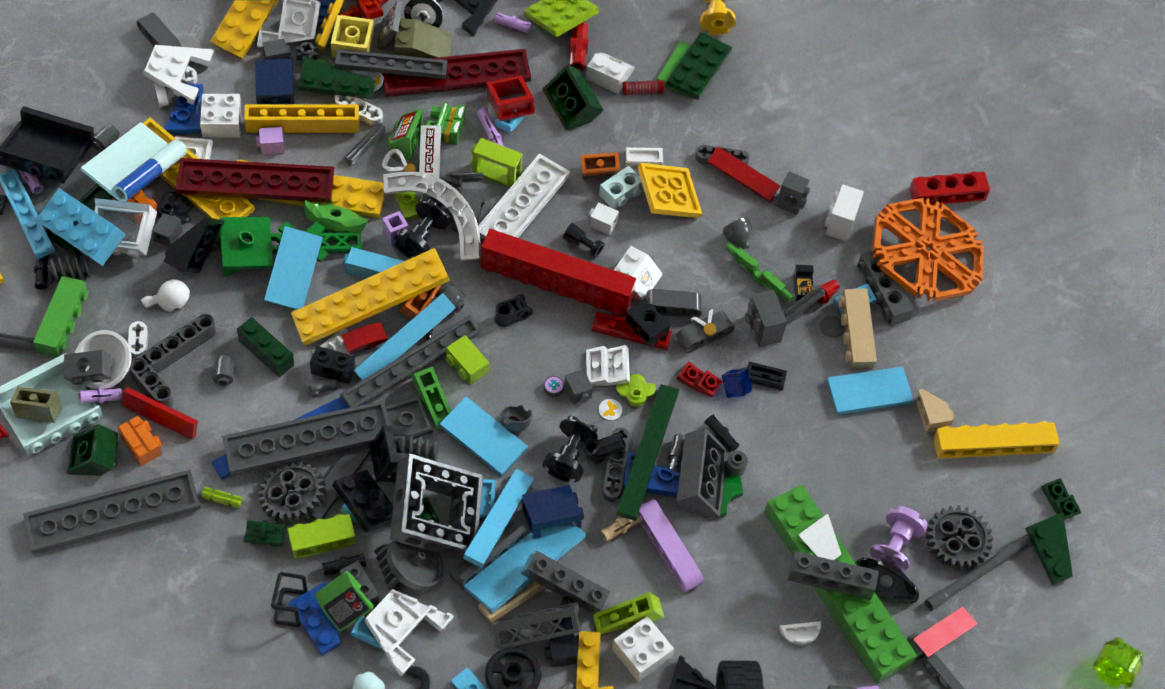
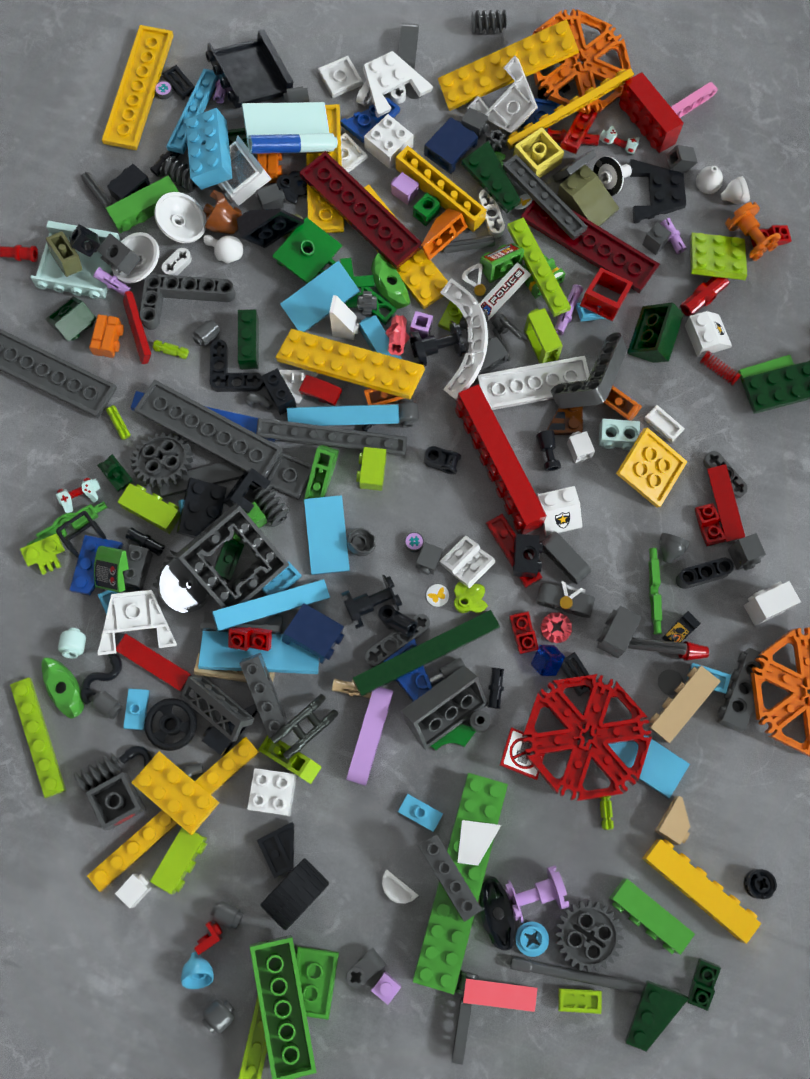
camera: 50 degrees right, 15 degrees up
(30, 311) = (128, 182): none -> black brick
(46, 378) = (83, 234): none -> black brick
(108, 300) = (185, 211): none -> white dish
(124, 98) = (340, 76): none -> white tile
(149, 272) = (222, 216): none -> dark orange piece
(206, 407) = (170, 349): none -> lime axle
(252, 564) = (88, 487): none -> light aqua piece
(261, 620) = (79, 523): none -> bright green piece
(269, 644) = (44, 553): none -> lime hinge
(272, 391) = (223, 374): none -> black beam
(303, 148) = (424, 215): none -> green brick
(330, 271) = (342, 320): none -> white slope
(336, 242) = (367, 302): none -> dark grey gear
(338, 144) = (443, 231): none -> orange slope
(386, 246) = (397, 335): none -> coral piece
(442, 115) = (539, 267): none -> lime plate
(449, 645) = (153, 662): none -> red tile
(504, 33) = (656, 238): none -> dark grey brick
(509, 553) = (247, 637): none -> red slope
(572, 207) = (567, 421): none -> reddish brown wing
(577, 163) = (601, 379): none -> dark grey beam
(610, 582) = (304, 737): none -> pearl dark grey piece
(710, 358) = (557, 636): none -> coral gear
(743, 197) = (709, 524): none -> red slope
(761, 566) = (420, 812): none -> medium azure plate
(784, 228) = (711, 567): none -> black beam
(789, 457) = (514, 756): none -> piece
(828, 396) = (605, 734): none -> red plate
(881, 446) = (606, 813): none -> lime axle
(929, 569) = (541, 936): none -> medium azure gear
(983, 486) = (651, 916): none -> bright green brick
(998, 585) = (579, 1000): none -> lime plate
(1027, 401) = (760, 884): none -> black wheel

